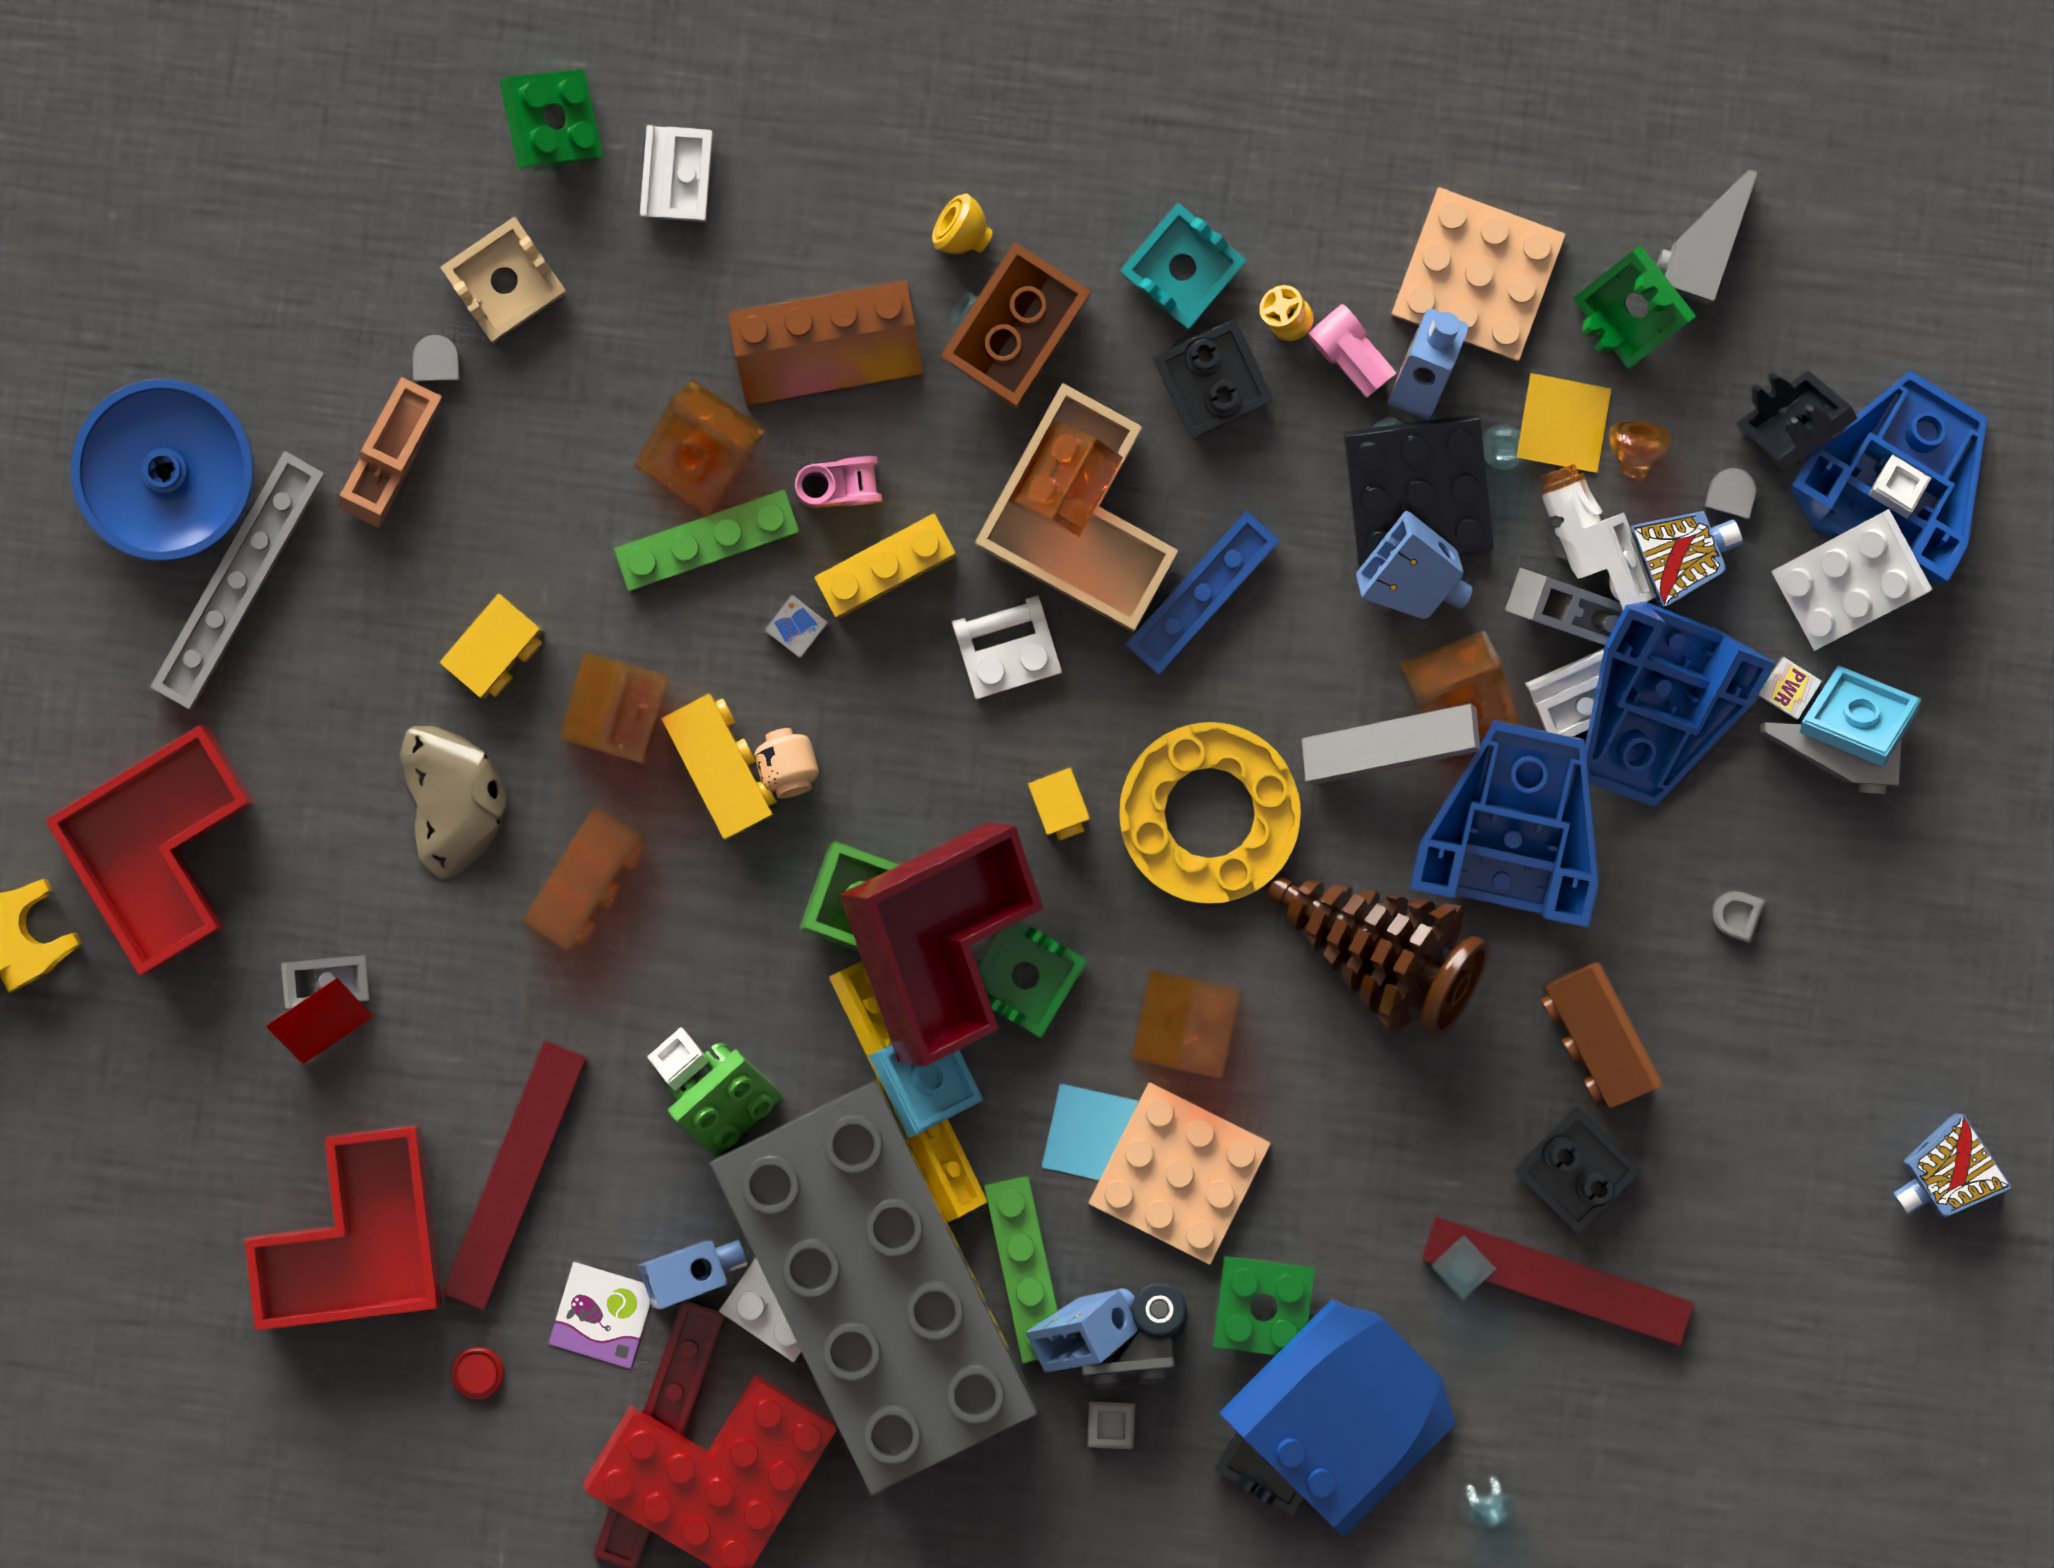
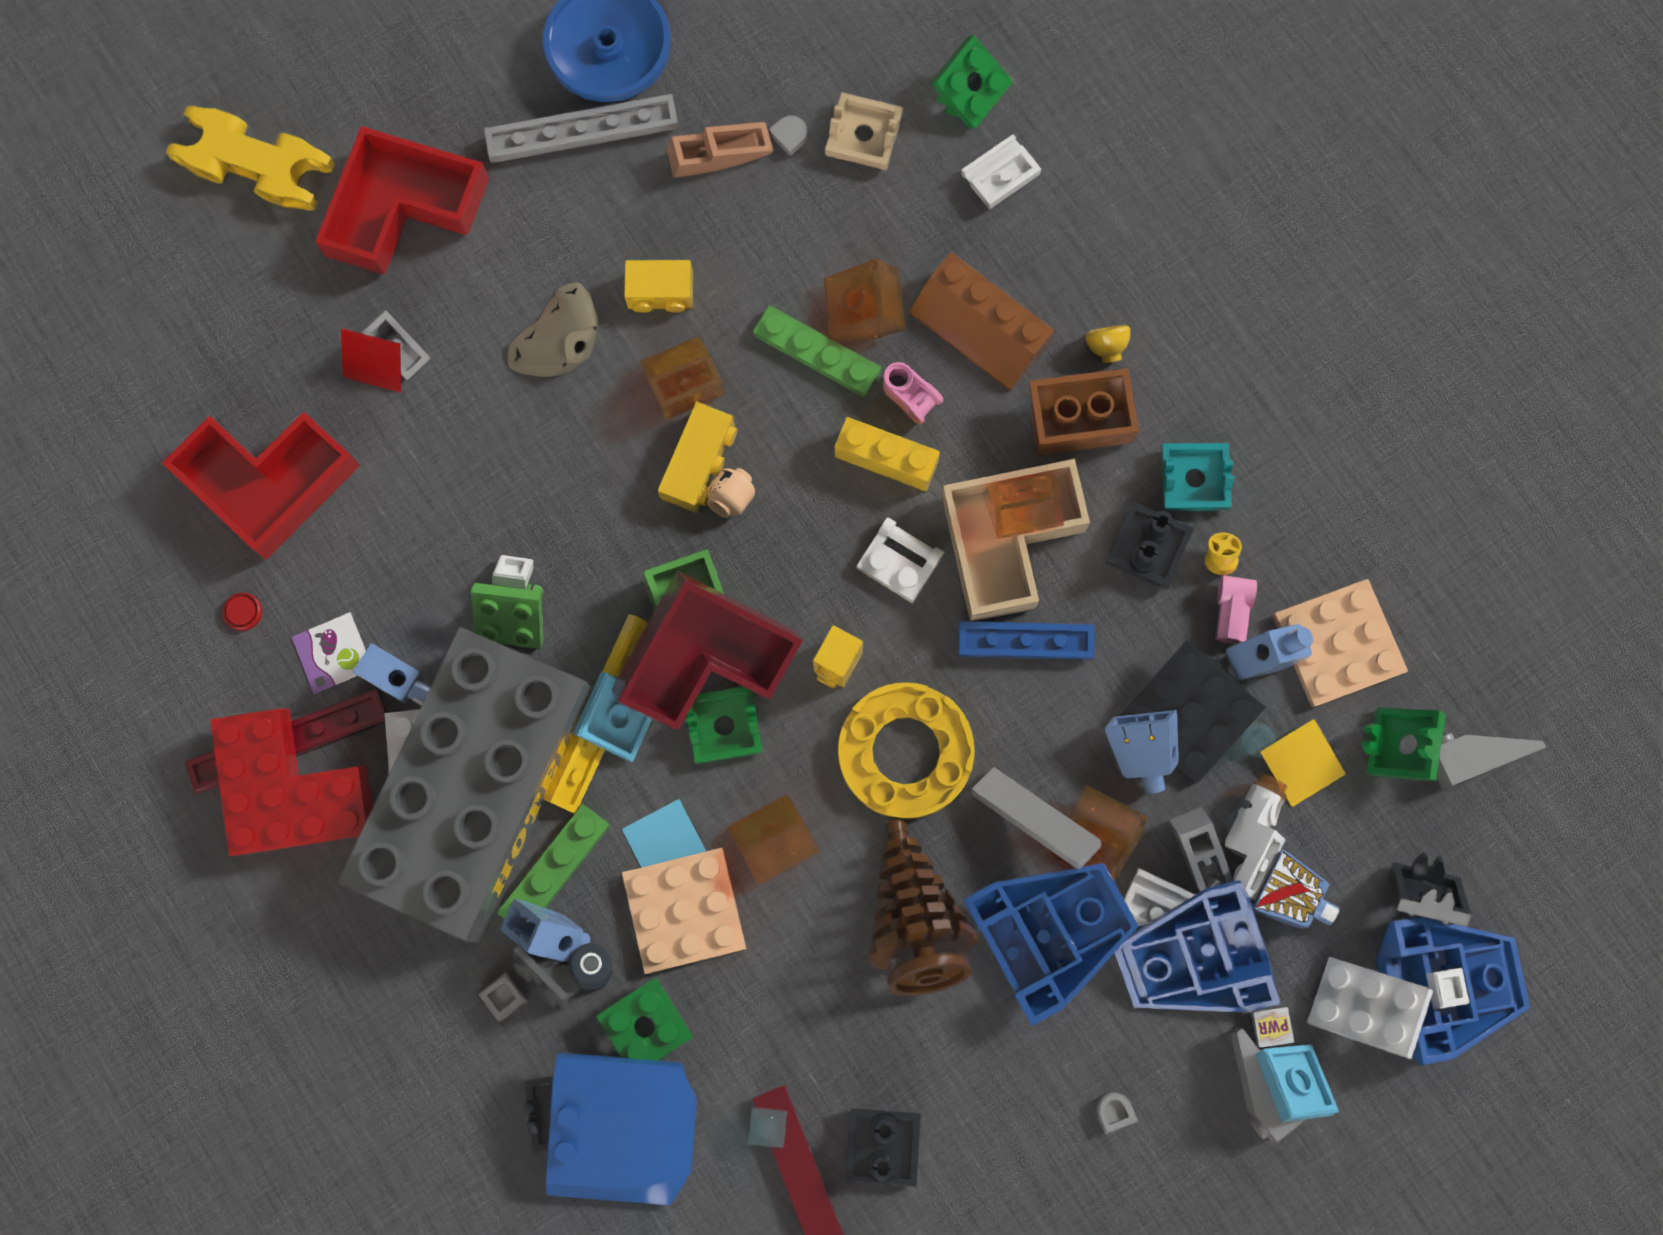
camera: 50 degrees right, 10 degrees down
(514, 1175) = (372, 538): dark red tile -> none
(584, 879) = (571, 437): clear orange brick -> none
(796, 626) = (811, 437): light grey tile -> none
(1600, 1036) = (973, 1090): dark orange slope -> none
(1638, 446) = (1329, 816): clear orange brick -> none
(1731, 493) = (1351, 894): light grey tile -> none

